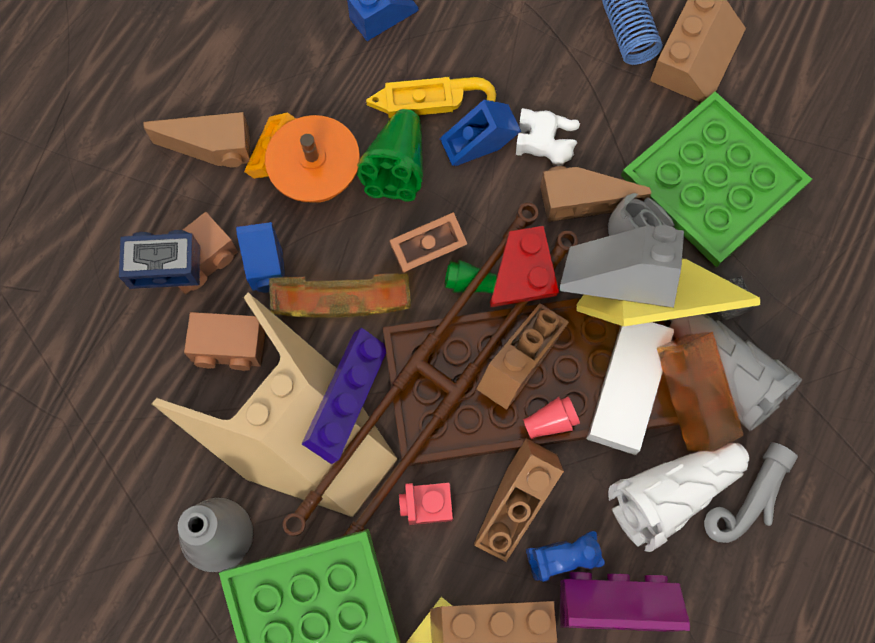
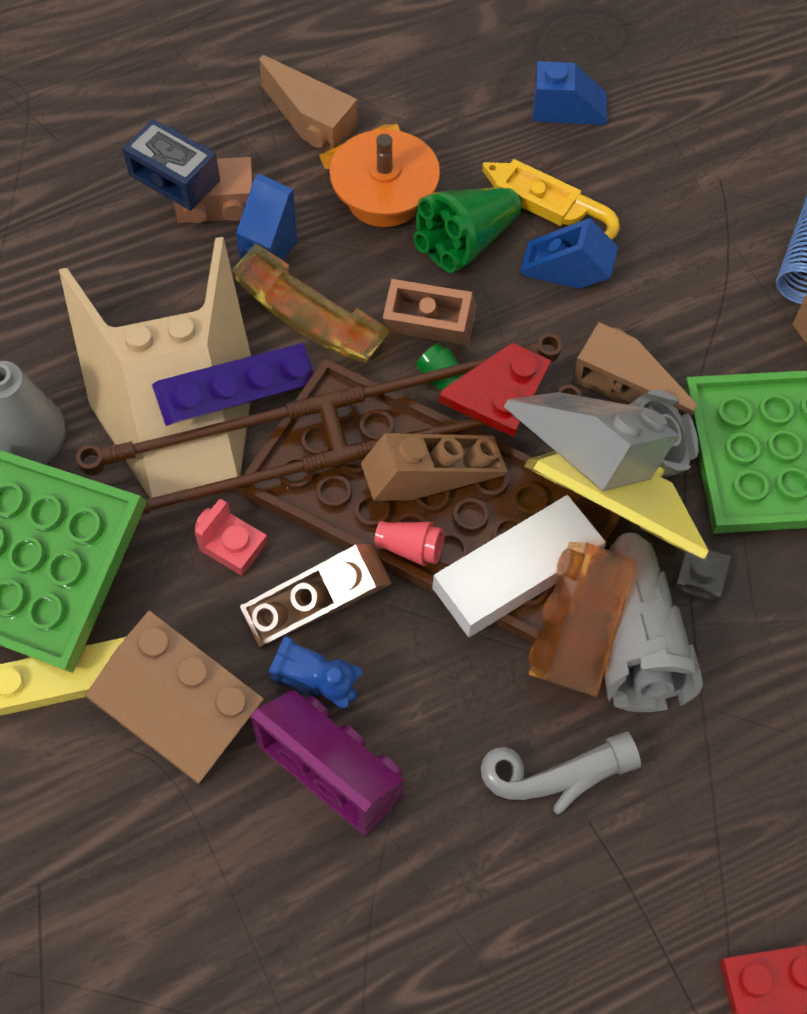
camera: 35 degrees right, 10 degrees down
(224, 340) = (170, 273): nougat brick -> none
(542, 130) = (630, 297): white animal -> none
(668, 495) = (477, 697): white cone -> none

